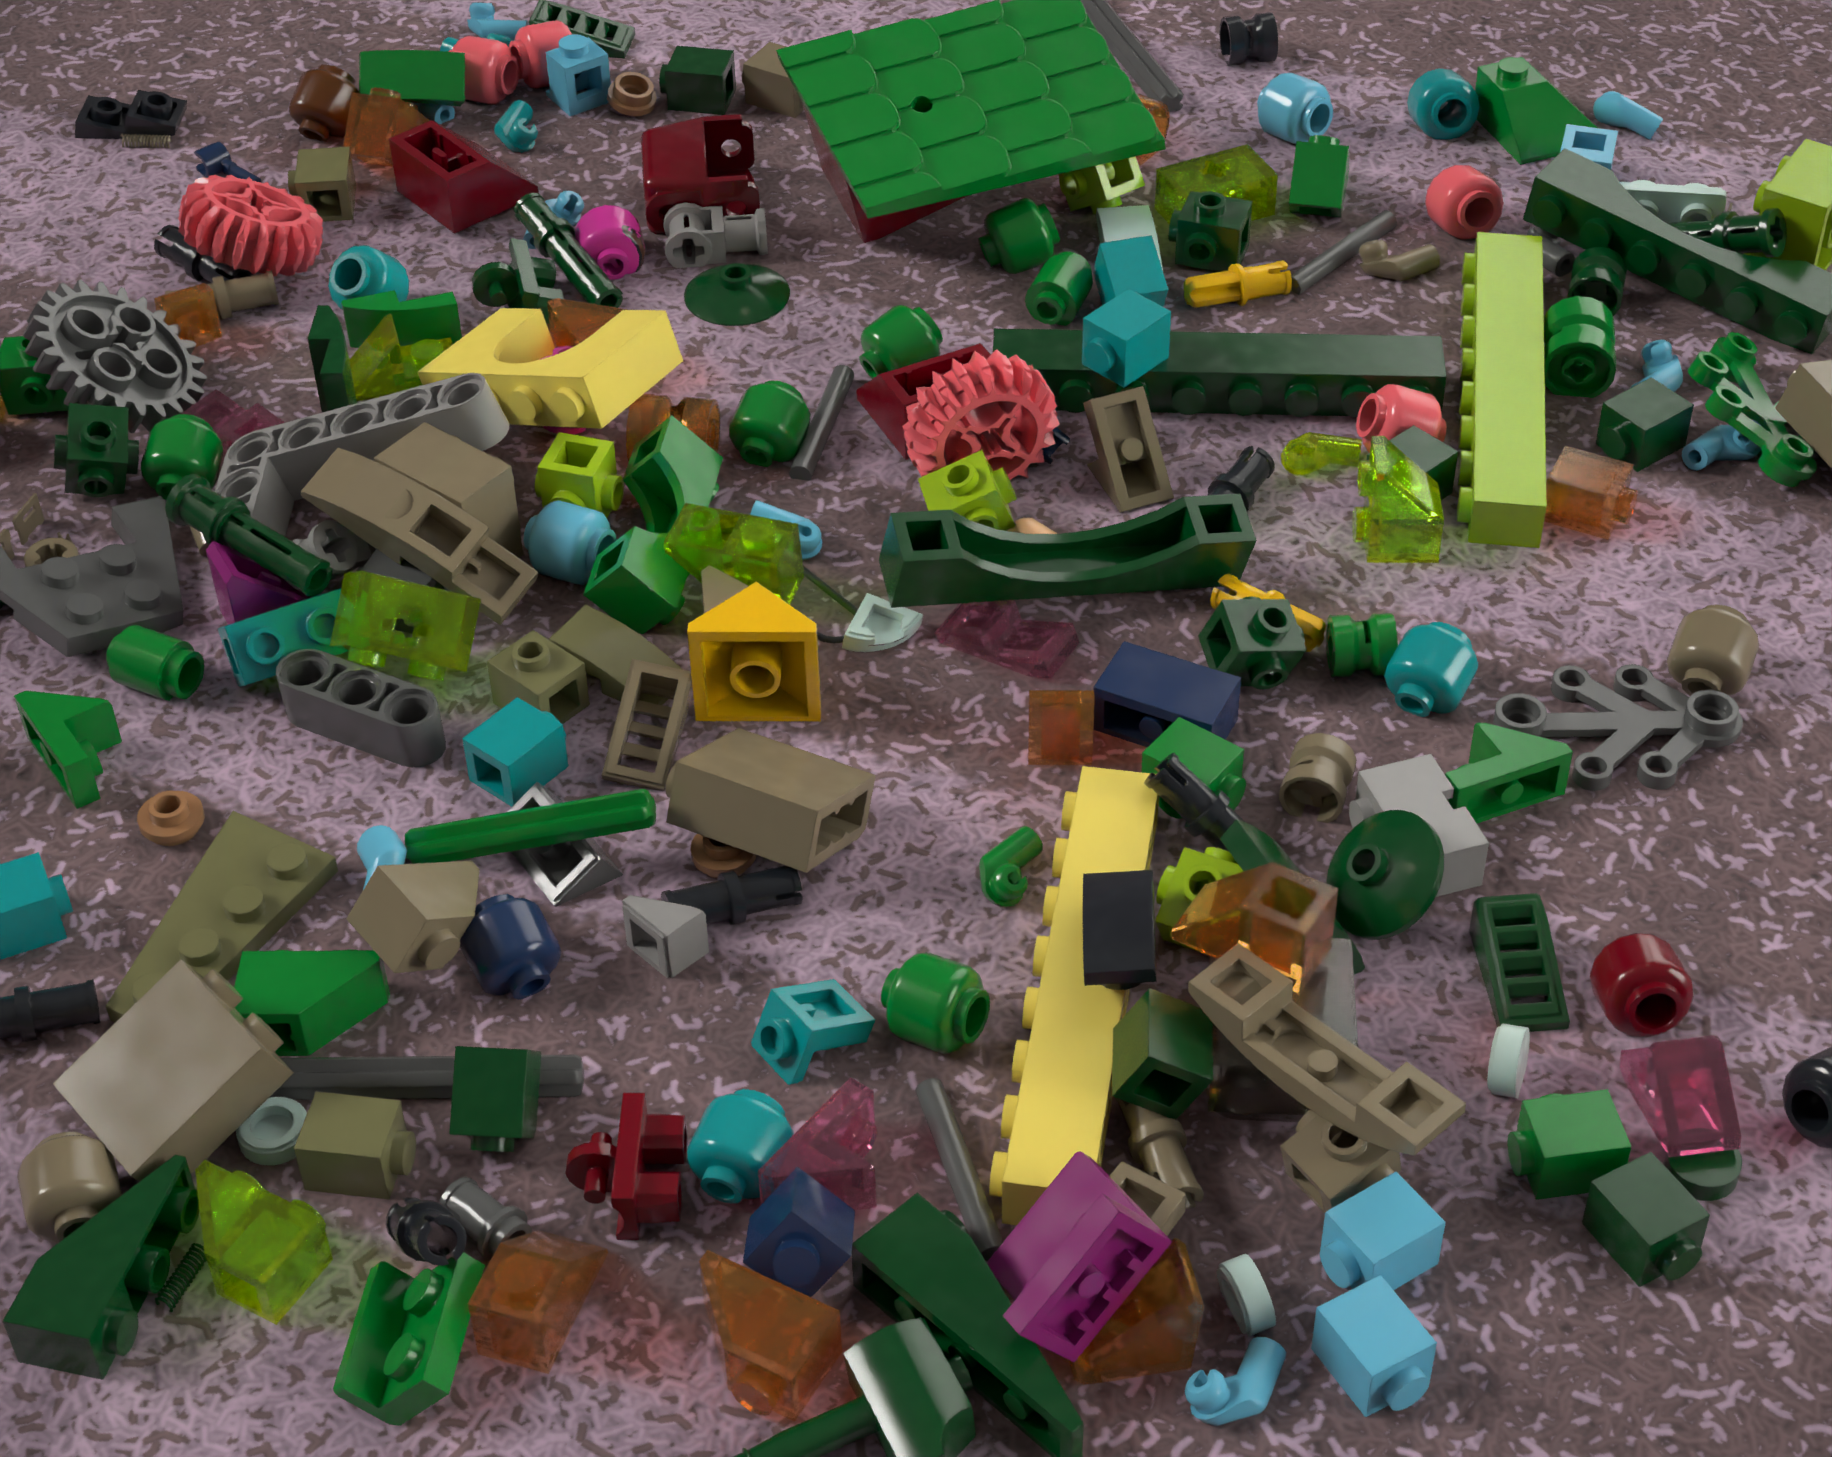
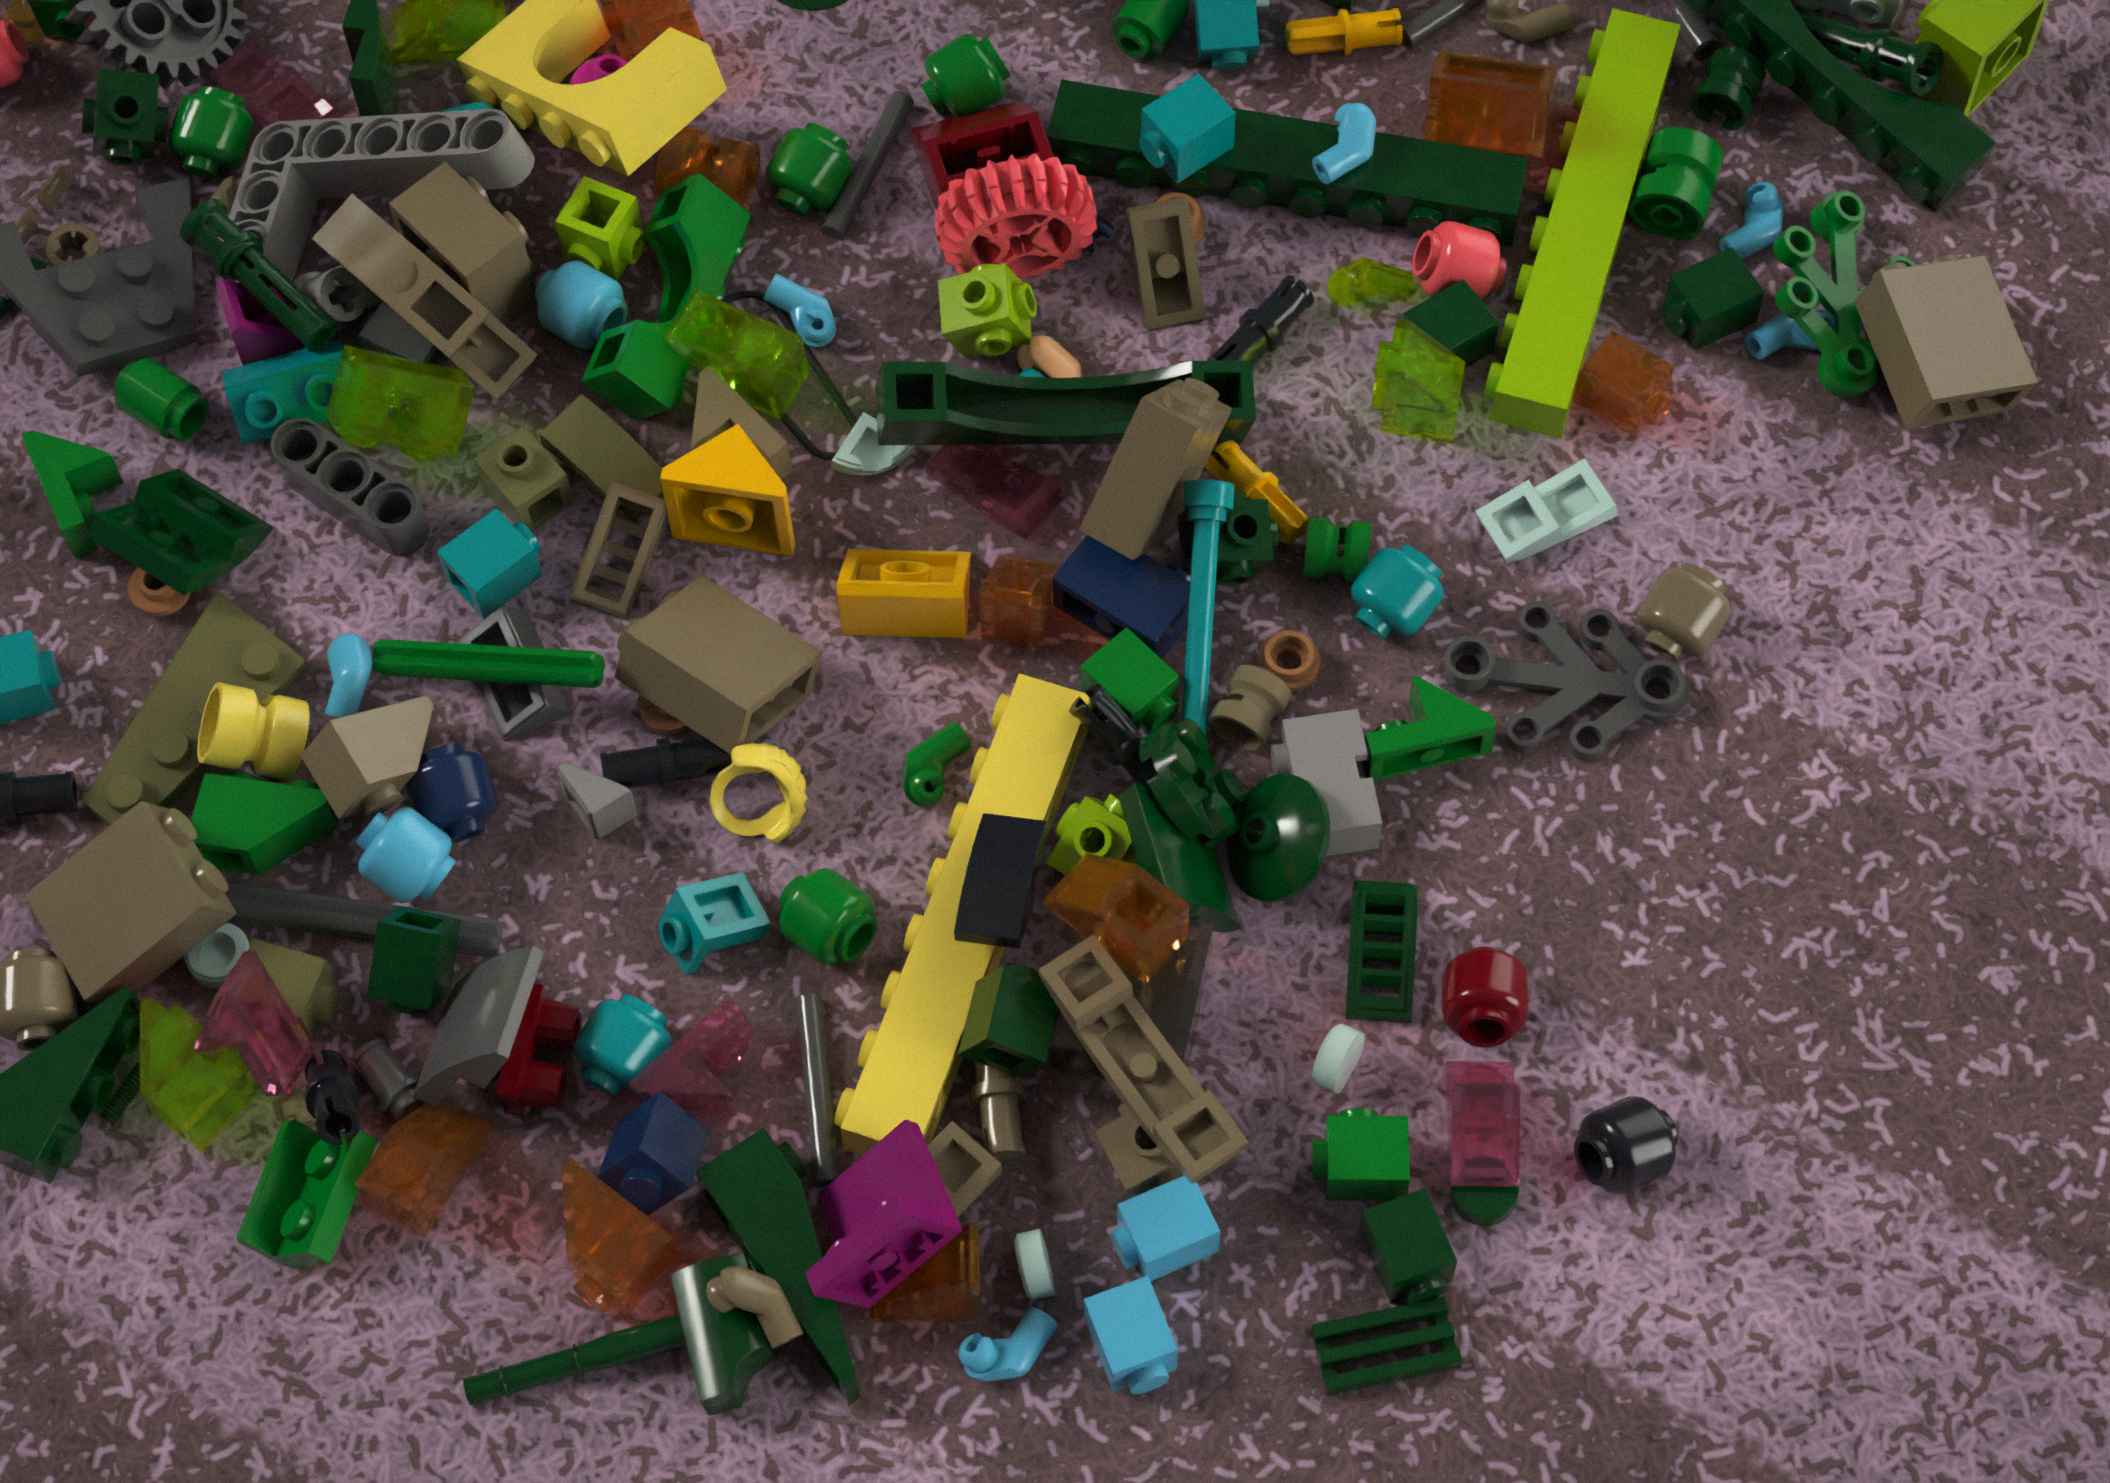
camera: 10 degrees right, 20 degrees up
(188, 764) = (180, 531): none -> dark green slope
(279, 910) = (242, 730): none -> light yellow wheel
(327, 1151) = (258, 1023): none -> clear pink slope
(469, 1001) = (404, 855): none -> medium azure head
(582, 1133) = (479, 1023): none -> dark grey slope
(862, 890) = (780, 819): none -> light yellow piece
(946, 733) = (904, 593): none -> yellow slope
(956, 1349) = (758, 1295): none -> dark tan arm
(1176, 572) = (1146, 478): none -> dark tan brick
(1236, 595) = (1207, 506): none -> teal piece
(1272, 817) = (1191, 783): none -> dark green plate
(1280, 337) = (1354, 143): none -> medium azure arm
(1349, 728) = (1294, 645): none -> medium nougat plate
(1396, 298) = (1491, 103): none -> clear orange slope
(1543, 604) = (1545, 515): none -> light aqua slope
(1692, 1281) = (1378, 1320): none -> dark green tile

